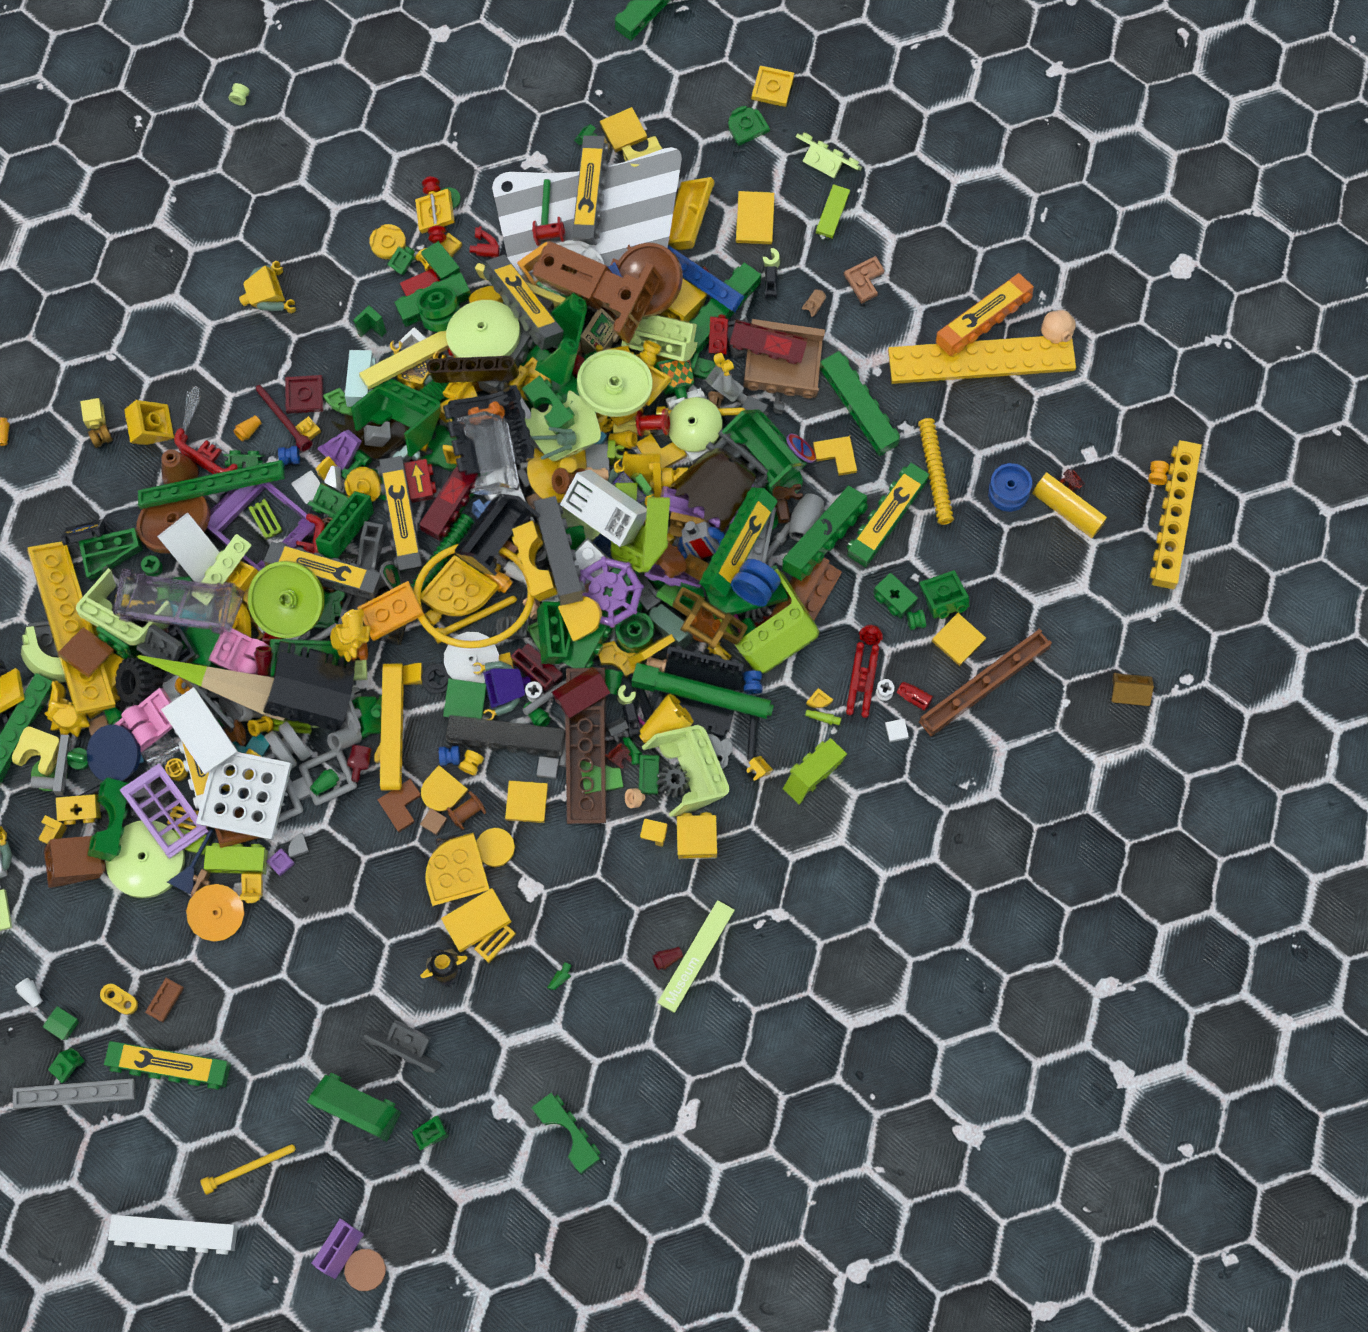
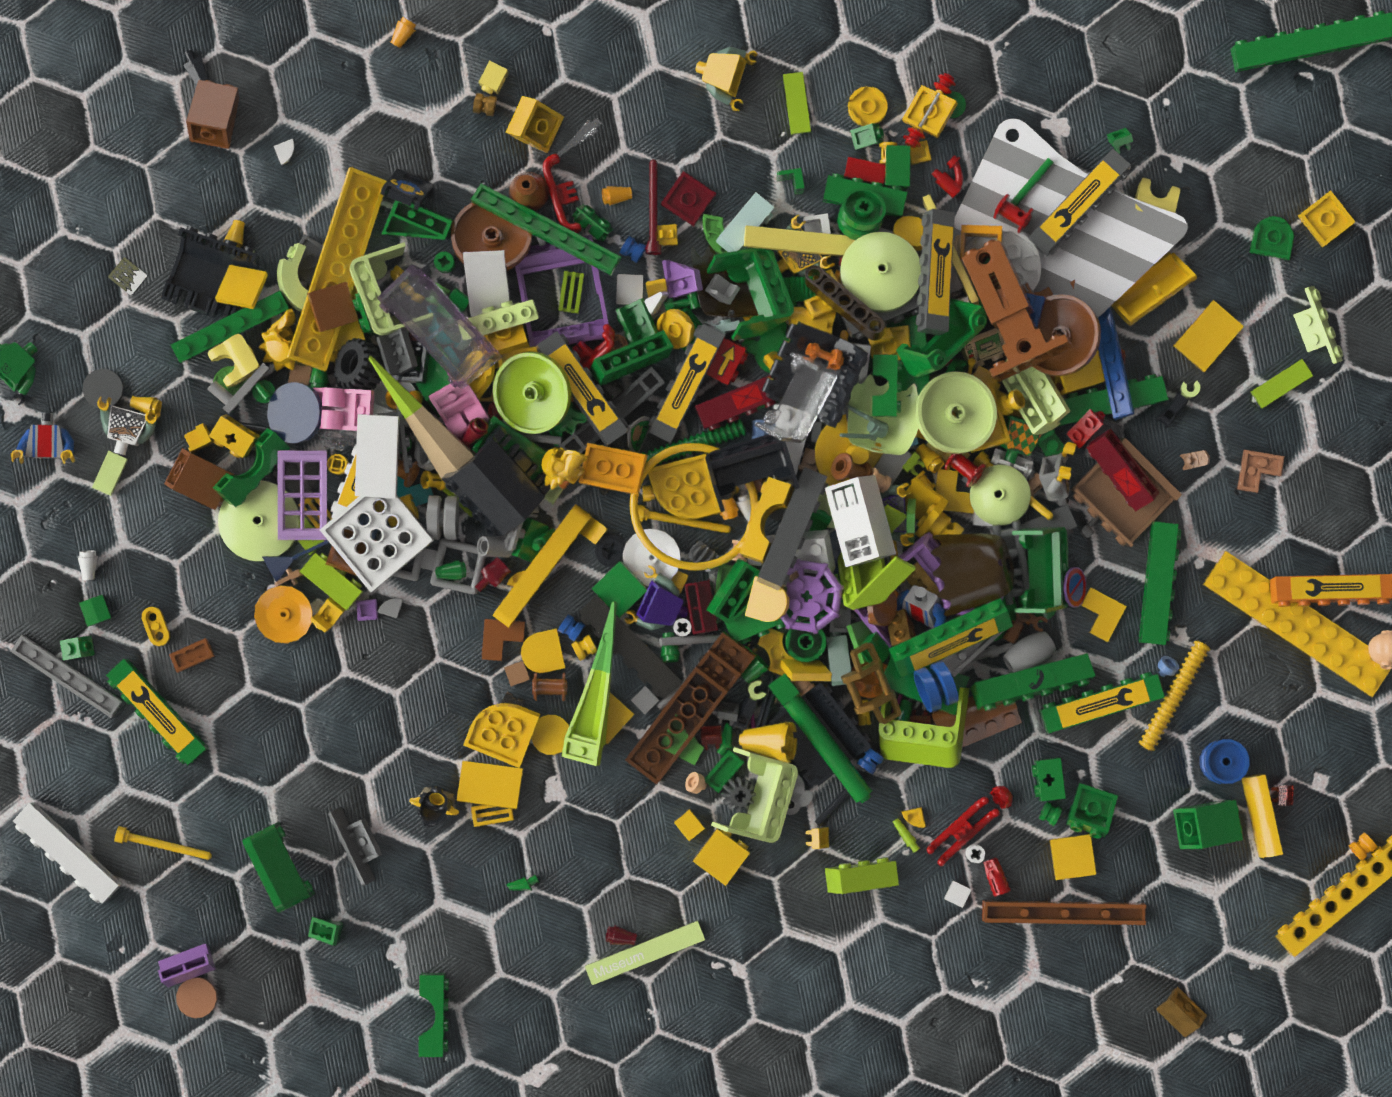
camera: 35 degrees right, 15 degrees up
(334, 275) = (796, 103): none -> lime tile
(518, 814) = (589, 724): none -> lime plate
(580, 692) = (716, 666): dark red piece -> none
(623, 129) = (1159, 158): yellow tile -> none
(914, 454) = (1168, 666): none -> medium blue tile
(1035, 540) = (1208, 824): none -> green slope

